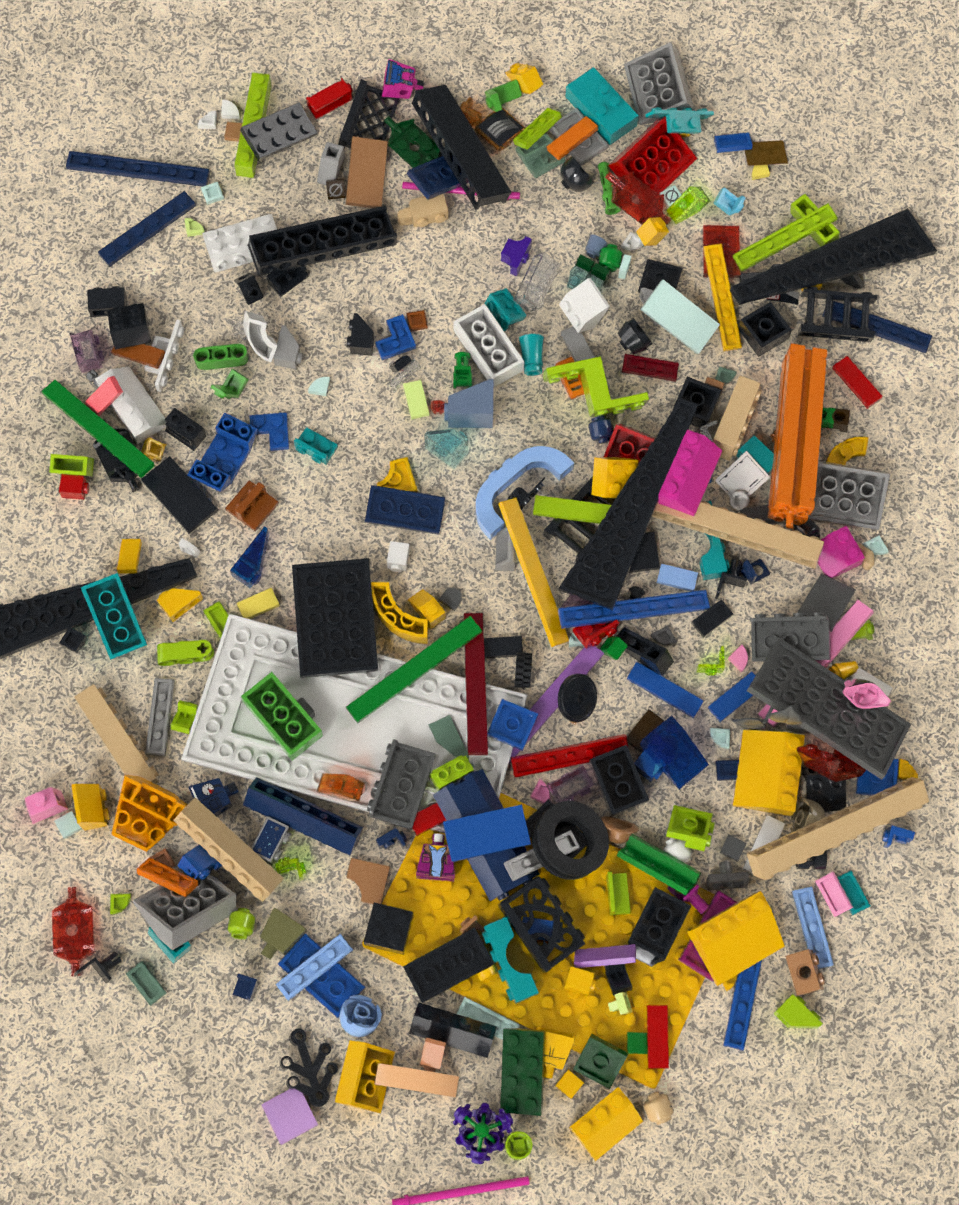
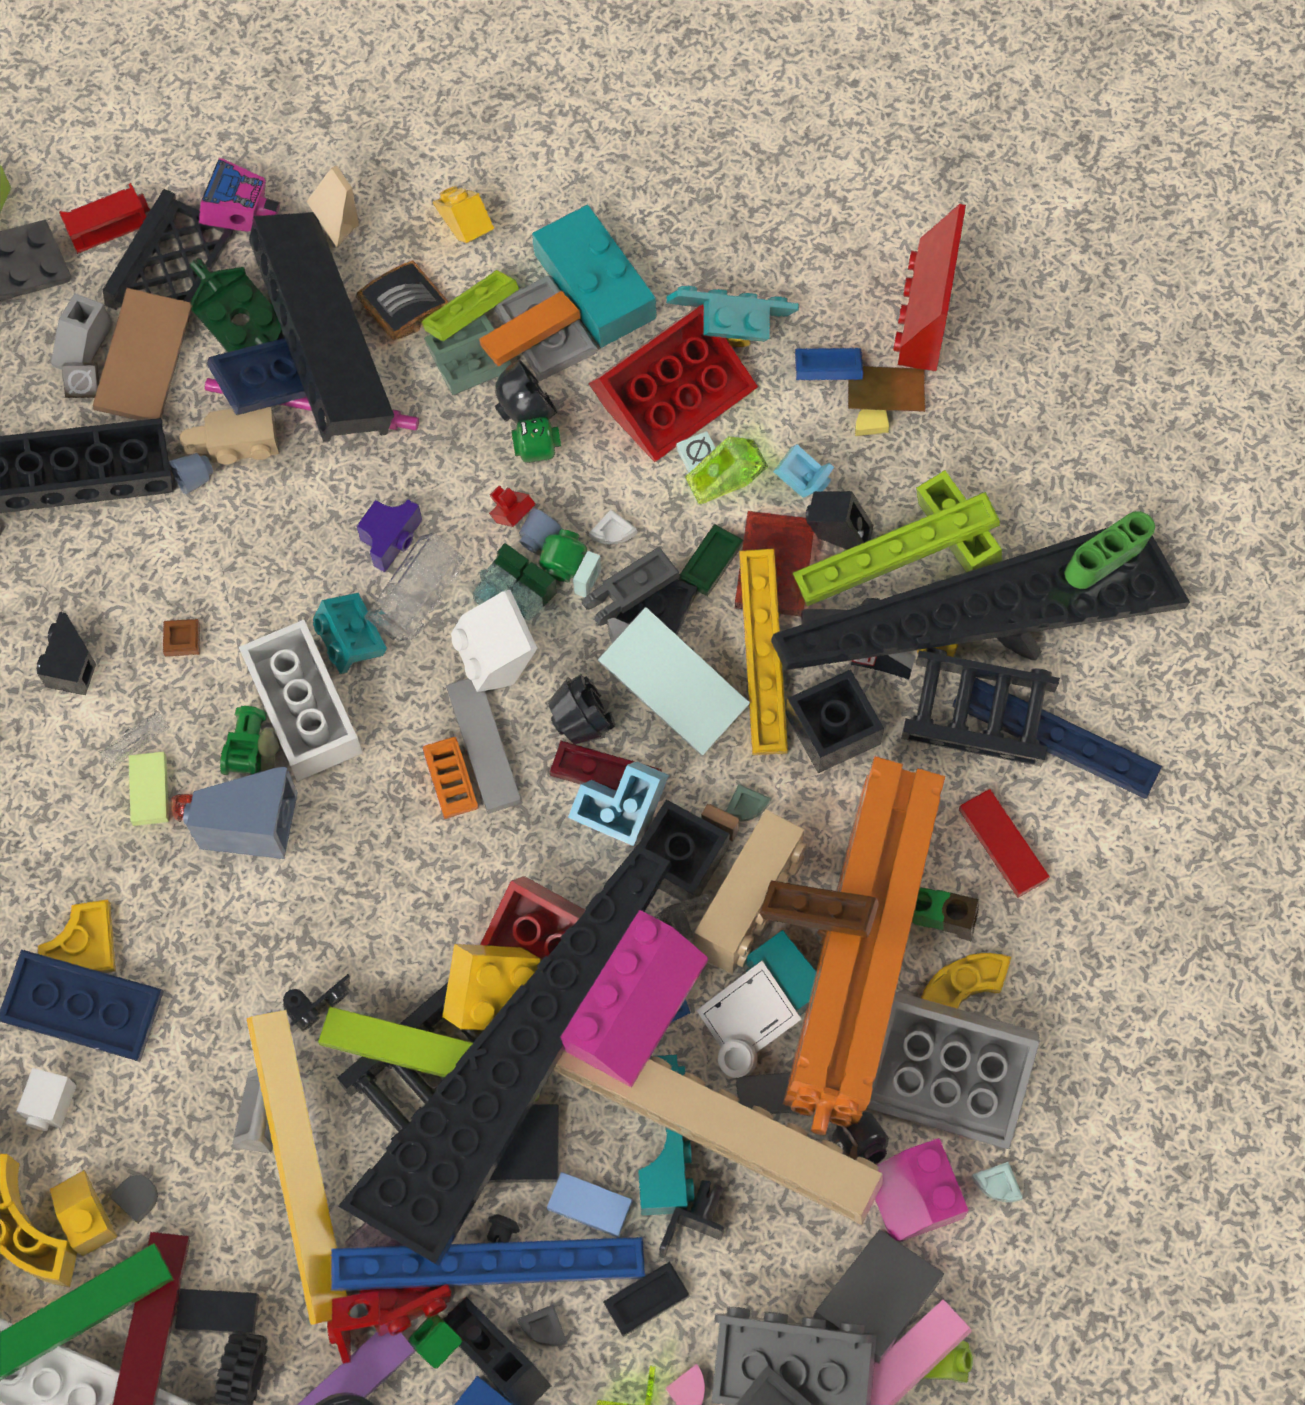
camera: 10 degrees right, 5 degrees down
(400, 340) = (139, 675): blue plate -> none
(400, 363) = (130, 716): black tile -> none
(405, 233) = (191, 471): none -> sand blue hat
(447, 445) = (184, 887): clear light blue slope -> none
(456, 79) = (335, 205): none -> tan slope
(473, 116) = (352, 271): clear orange bracket -> none
(476, 370) = (268, 747): none -> olive animal
(502, 94) = (417, 239): bright green bracket -> none
(532, 353) = (382, 723): teal plant -> none
(534, 457) = (292, 955): light blue arch -> none
(569, 640) = (342, 1323): none -> red bracket
(578, 234) = (510, 506): none -> red tile
(585, 198) = (535, 440): none -> green head
(595, 387) = (484, 802): lime bracket -> none
(601, 429) = (486, 884): dark blue head -> none
(611, 208) = (582, 439): bright green pin -> none
(649, 204) = (655, 458): clear red plate -> none
(650, 269) = (632, 585): none -> dark grey hinge
(652, 231) = (649, 513): yellow brick -> none
(658, 81) = (707, 242): light grey slope -> none
(665, 386) = (623, 812): none -> medium azure brick
(687, 252) = (711, 559): none -> dark green tile
(749, 573) = (732, 1212): dark blue bracket -> none
(752, 224) = (839, 519): none -> black slope
(775, 419) = (819, 908): none -> reddish brown tile
(784, 98) = (929, 293): none -> red slope
(869, 560) = (978, 1204): tan arm -> none
(894, 227) = (1096, 552): none -> bright green beam

